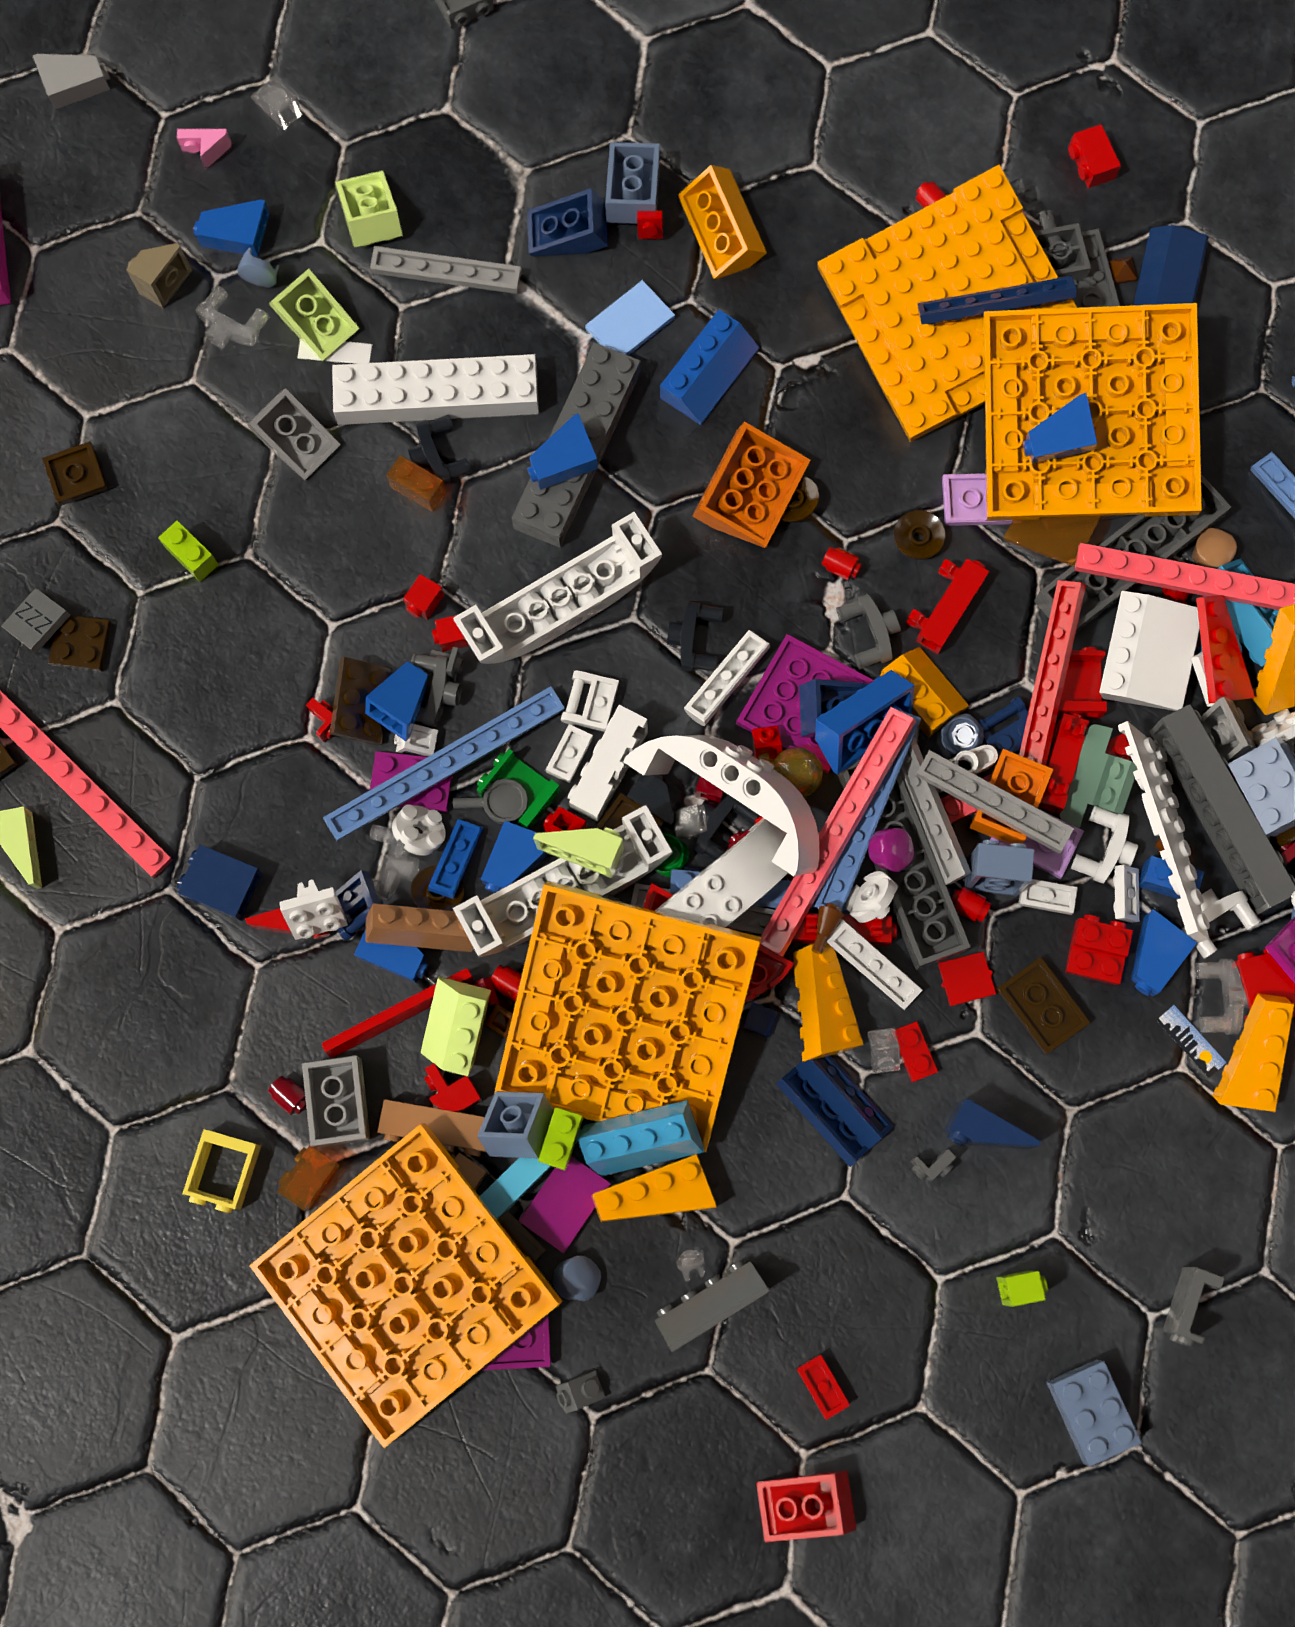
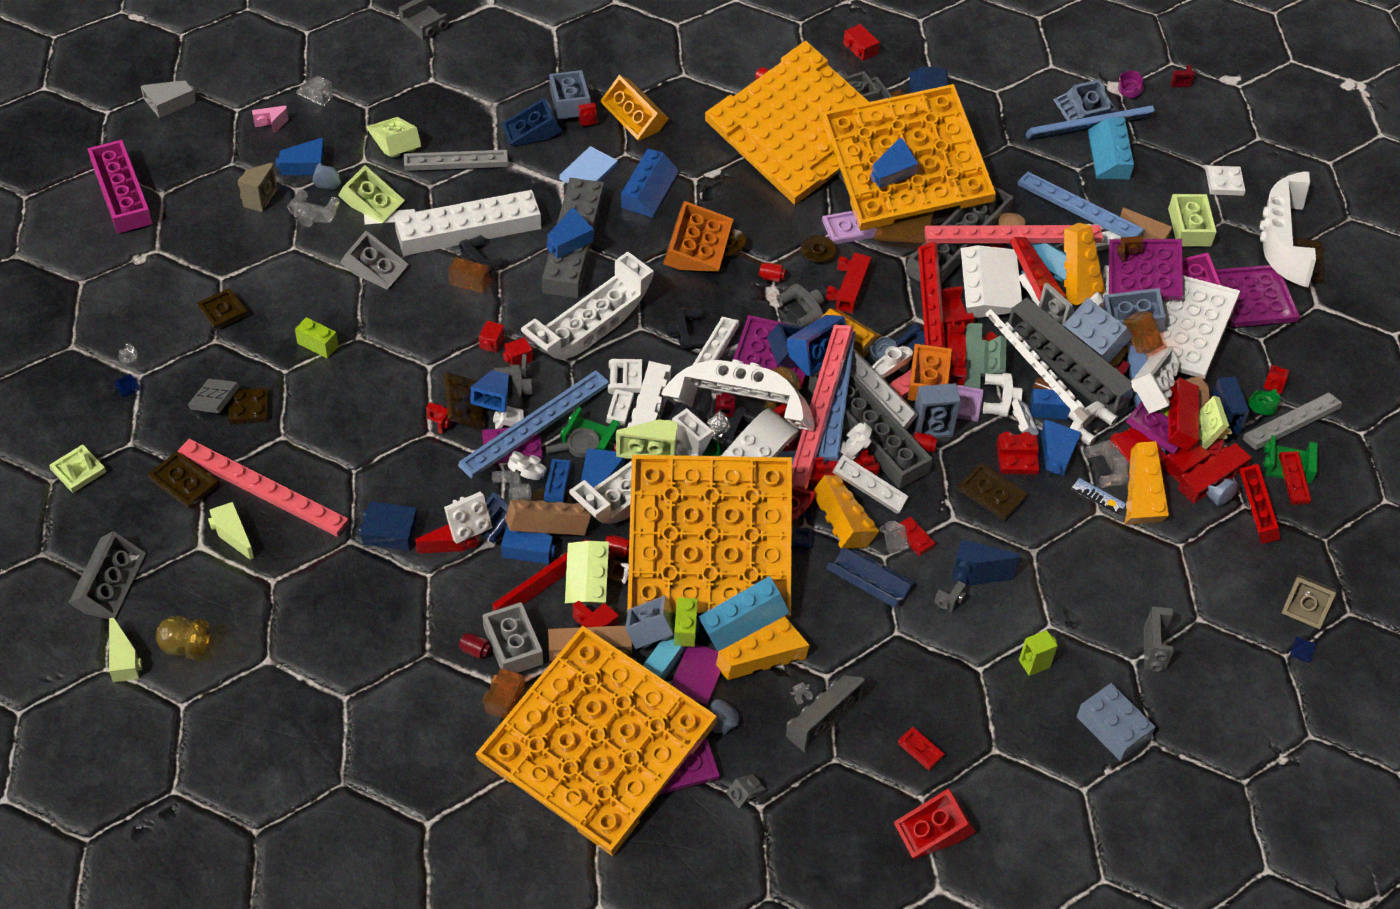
camera: 20 degrees left, 25 degrees down
(199, 1163) = (436, 683): light yellow window -> none
(828, 920) = (831, 457): reddish brown cone -> none
(891, 849) = (860, 409): magenta hair -> none
(966, 979) = (935, 488): red piece -> none
(994, 802) = (919, 368): light grey plate -> none
(999, 299) = (816, 112): dark blue plate -> none
(1049, 897) = (973, 429): white plate -> none

